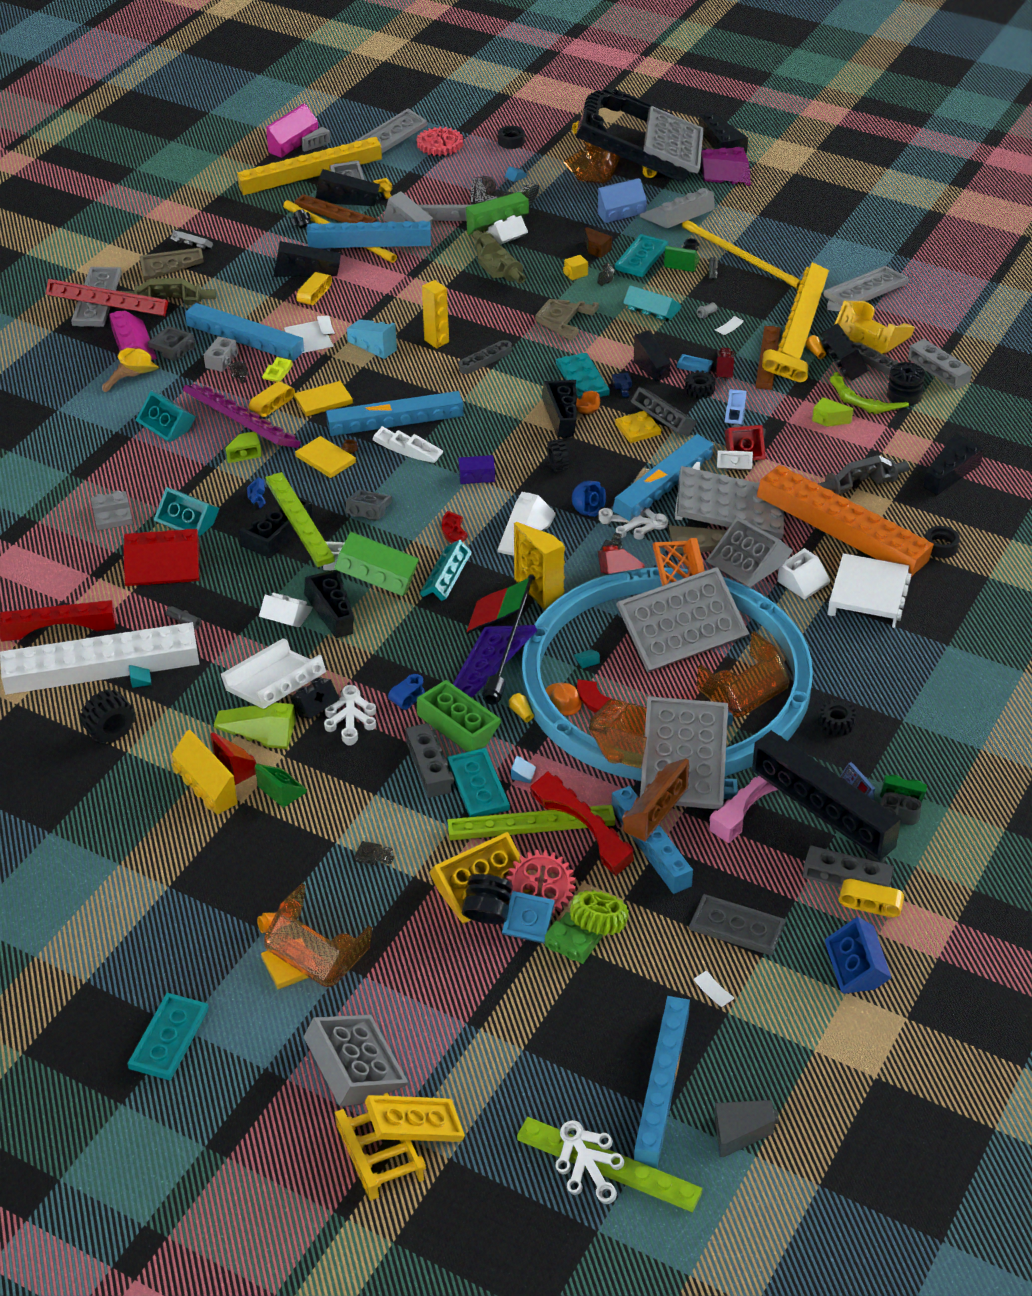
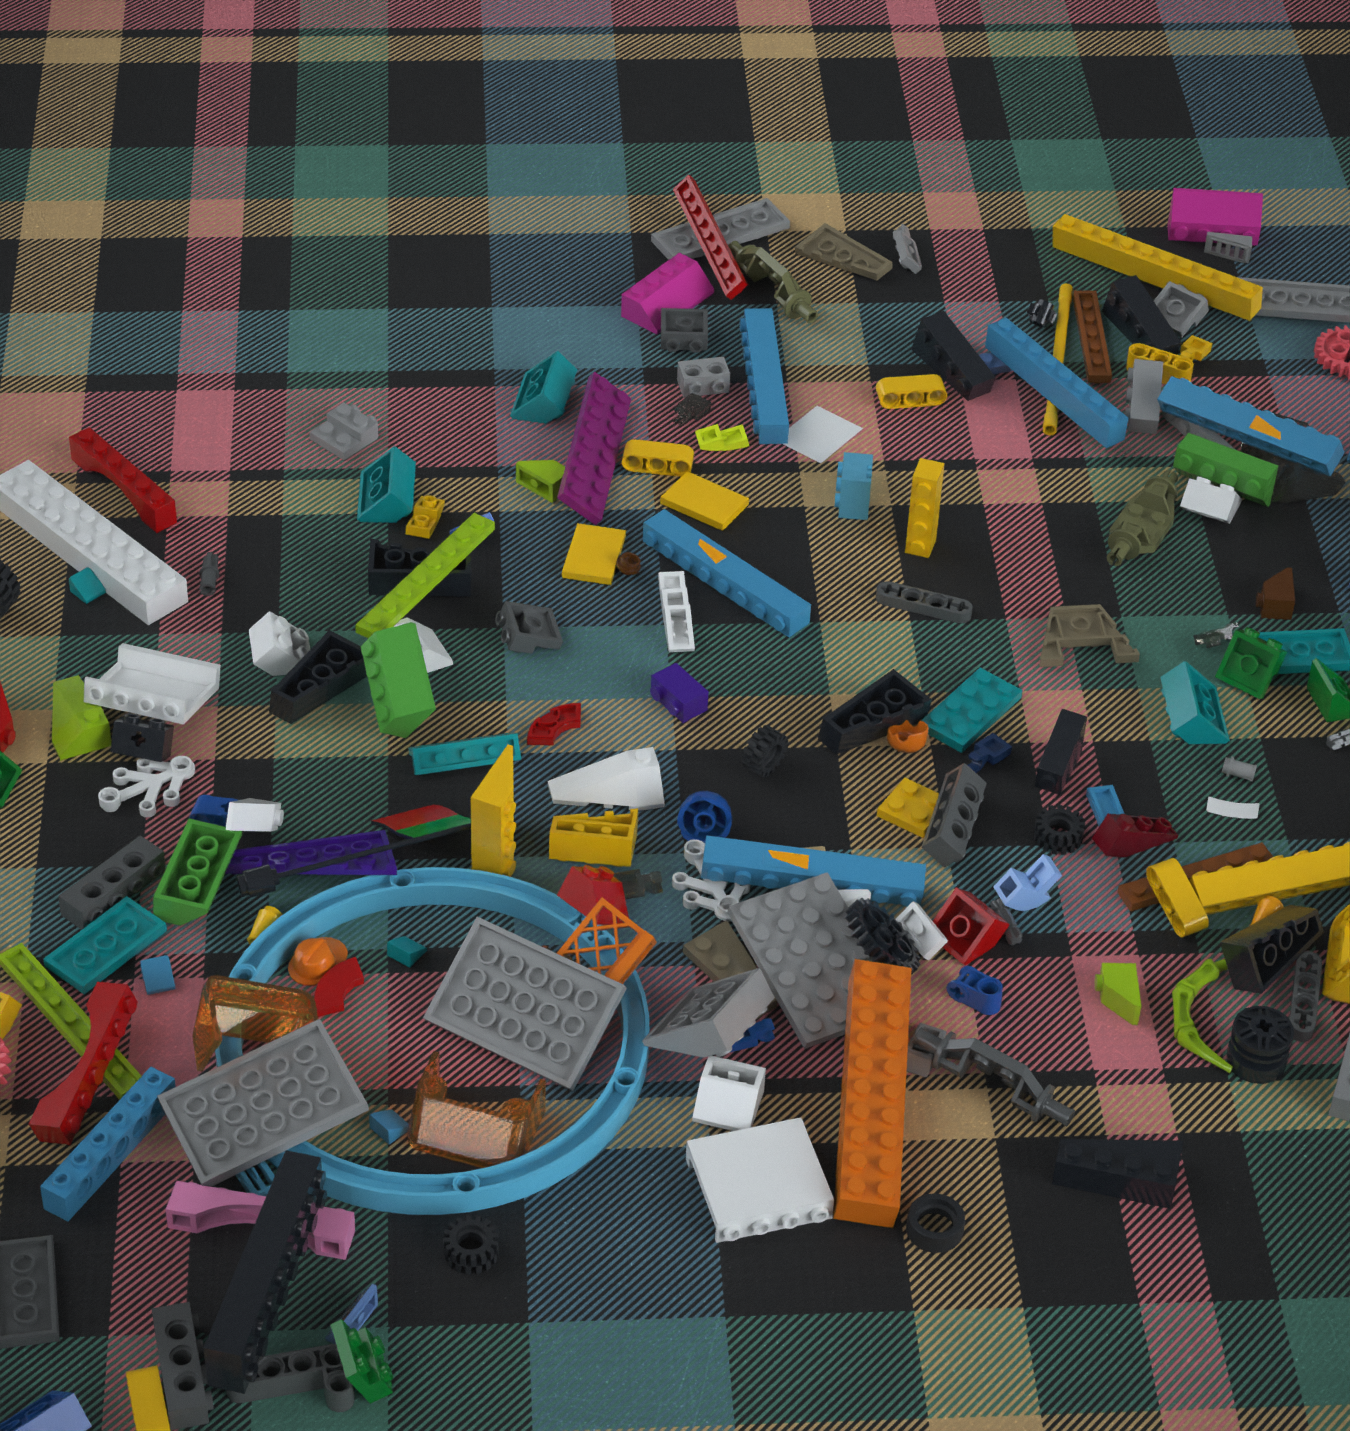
camera: 55 degrees right, 0 degrees up
(131, 364) = (612, 316): yellow hat -> none
(161, 557) = (293, 507): red slope -> none
(226, 510) = (425, 516): none -> yellow slope
(325, 325) = (854, 436): white sticker -> none
(377, 203) = (1172, 364): none -> yellow beam
(433, 671) = (254, 815): none -> white slope
(479, 186) = (1251, 425): none -> dark azure brick
(575, 267) = (1199, 599): yellow brick -> none
(577, 539) = (594, 839): none -> yellow wedge
(642, 269) = (1251, 662): none -> green plate
(657, 800) = (139, 1108): dark orange slope -> none
(739, 469) = (881, 935): none -> black gear
(793, 458) = (978, 990): none -> blue piece

